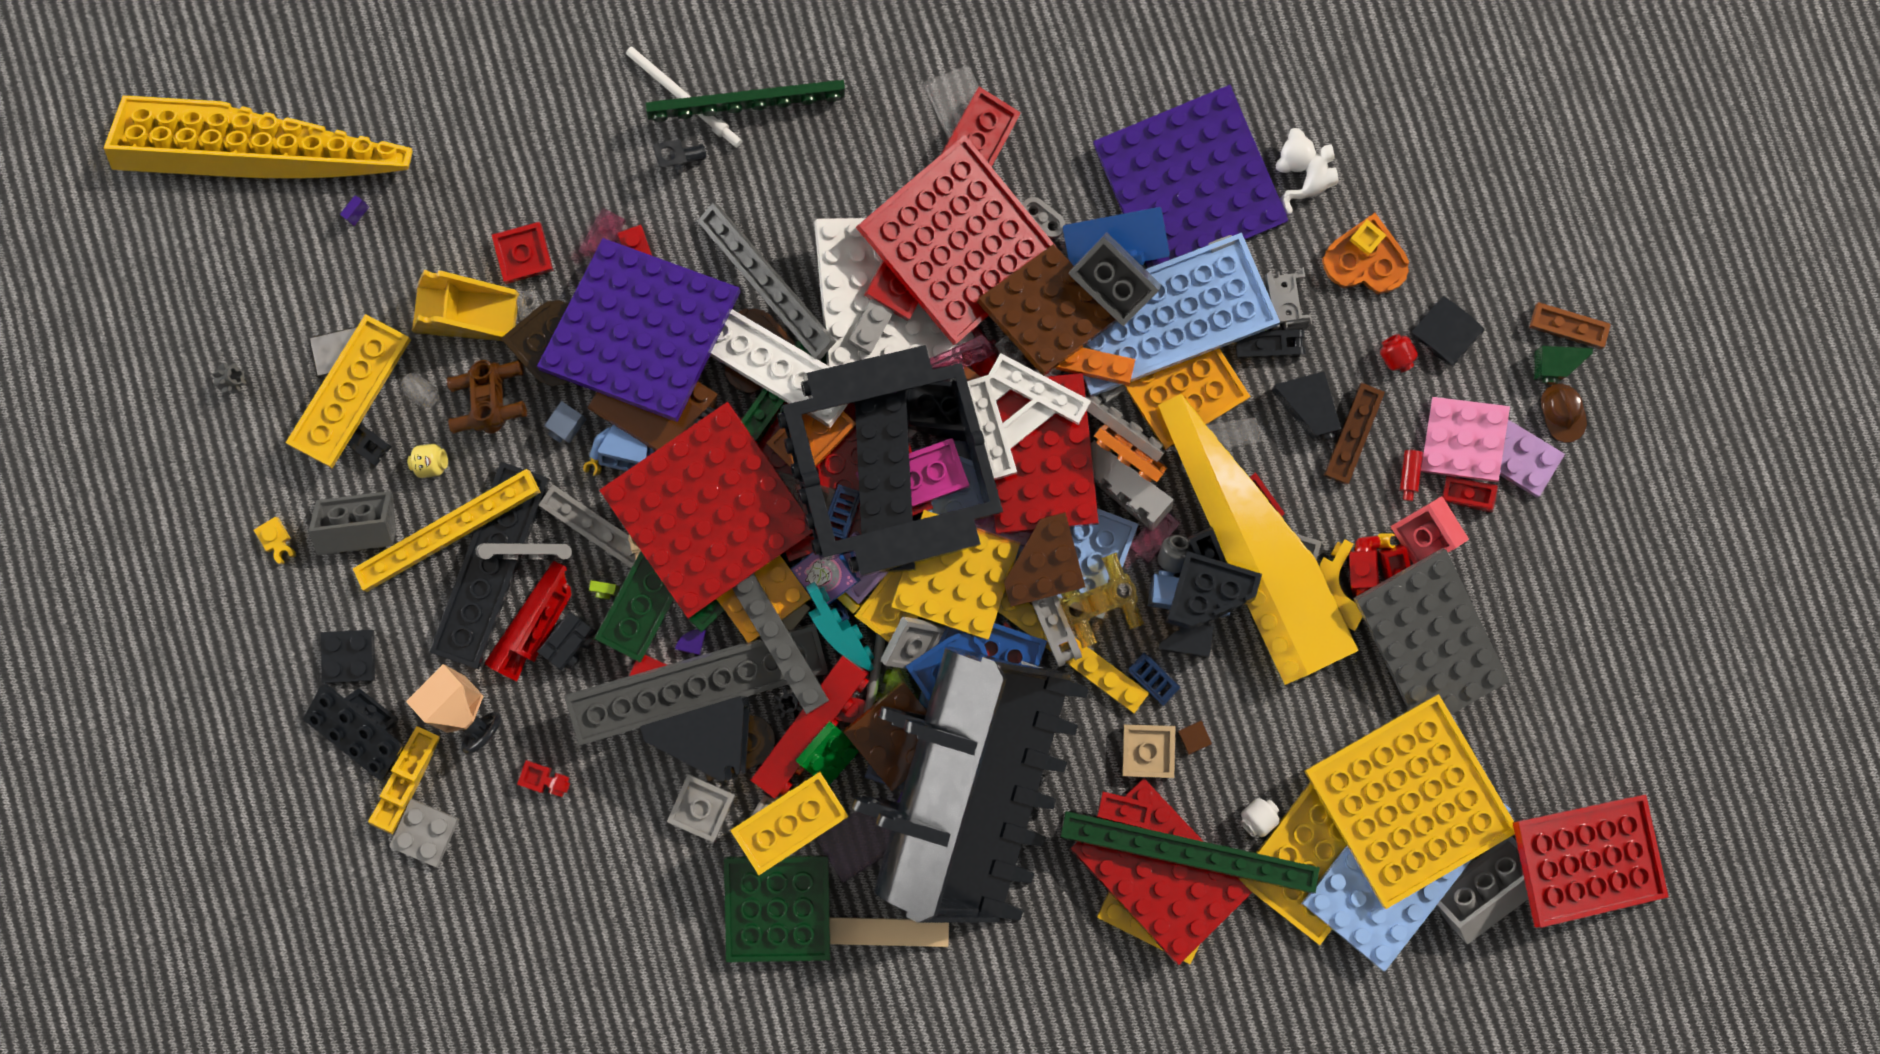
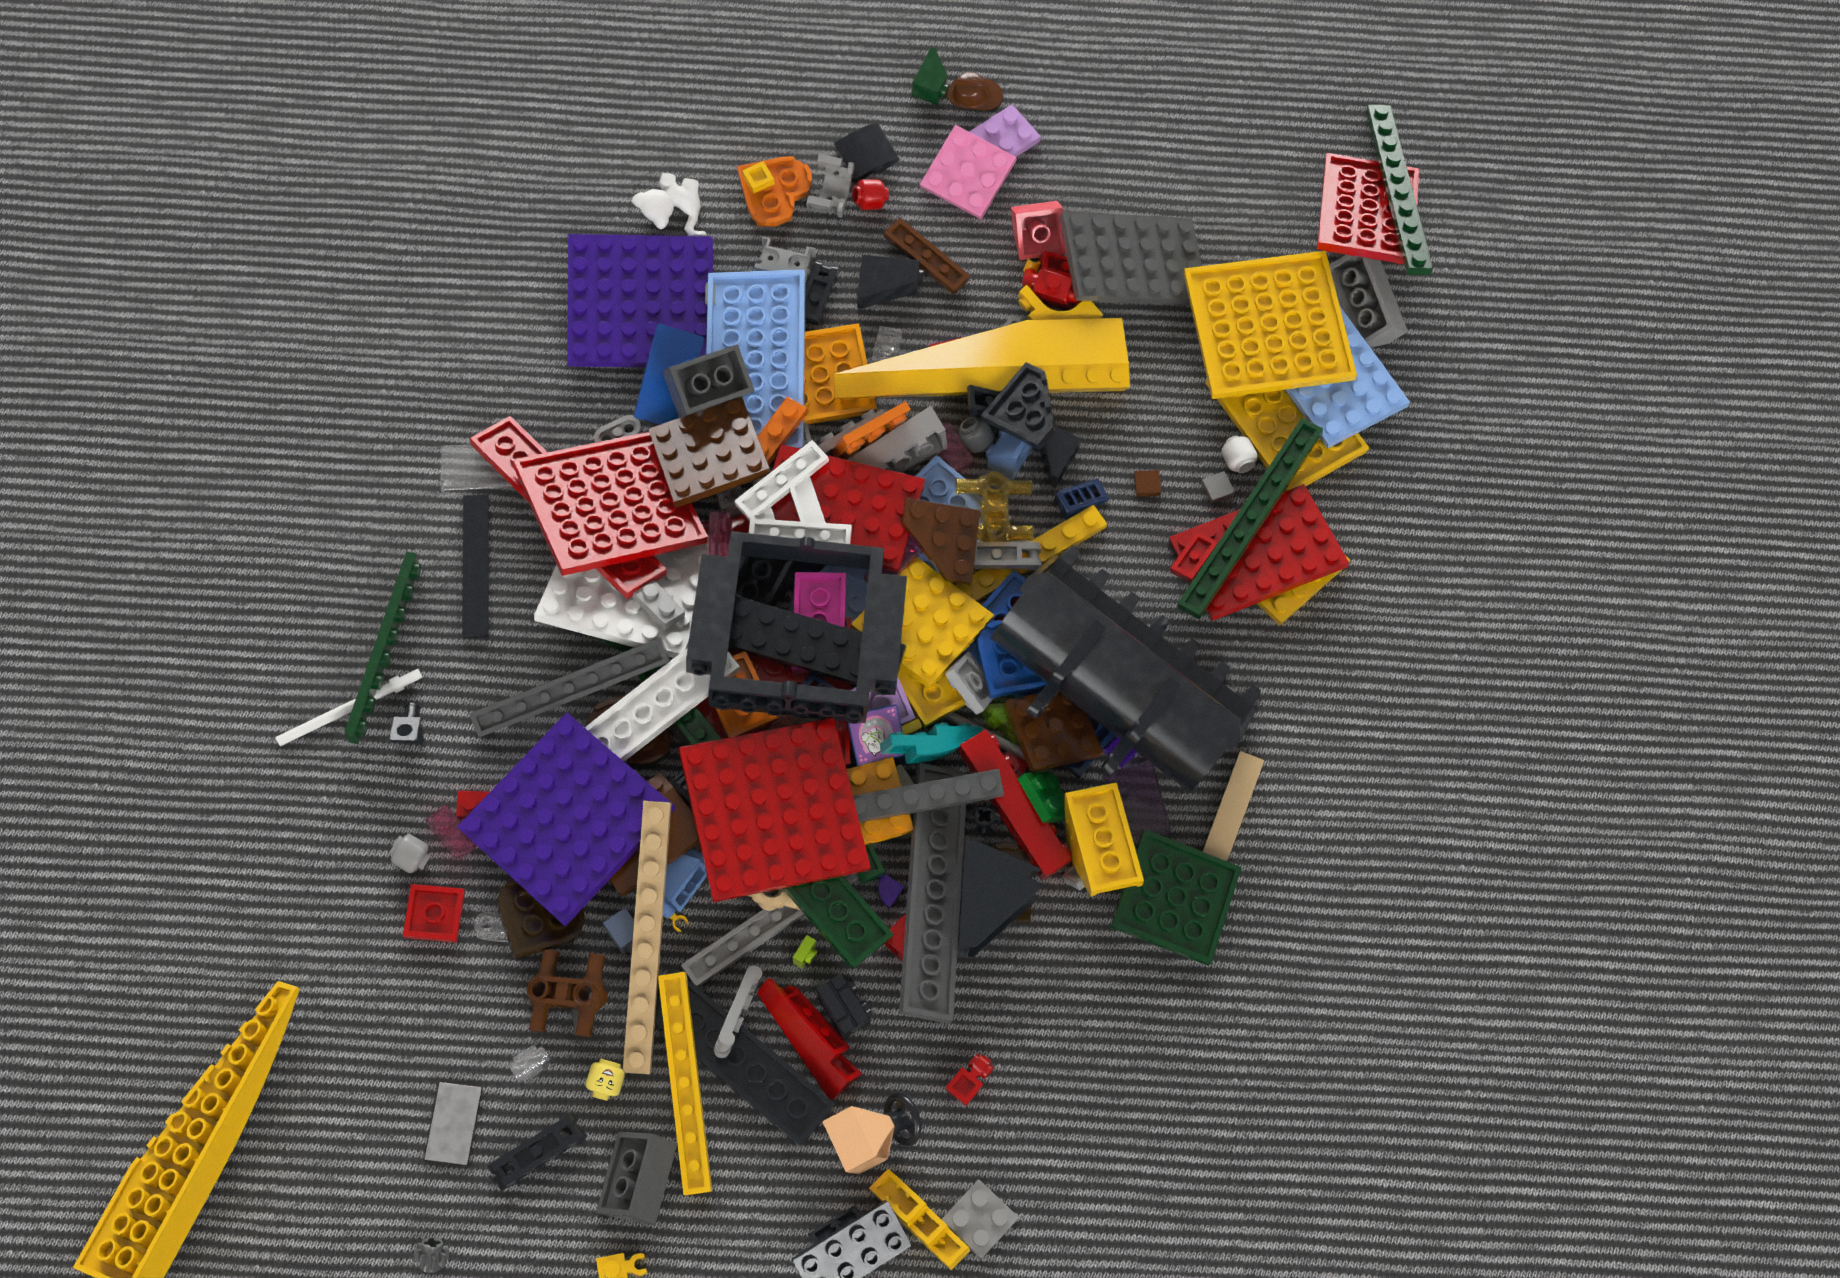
camera: 75 degrees left, 15 degrees down
(347, 656) = (770, 1235): black plate -> none
(348, 391) = (500, 1131): yellow plate -> none
(354, 210) = (313, 1064): dark purple tile -> none
(463, 307) = (463, 990): yellow ladder -> none
(557, 444) = (647, 937): none -> tan plate
(566, 208) = (409, 853): none -> light grey head
(701, 808) = (1054, 937): light grey plate -> none
(861, 147) = (475, 566): none -> black tile
(1148, 751) = (1145, 524): tan plate -> none
(1218, 807) = (1217, 487): none -> light grey tile
(1391, 315) = (834, 186): none -> light grey piece
(1411, 474) = (980, 225): red cylinder -> none
(1470, 494) = (1017, 187): red slope -> none
(1570, 325) = (902, 59): dark orange plate -> none
(1624, 885) = (1399, 190): none -> plate

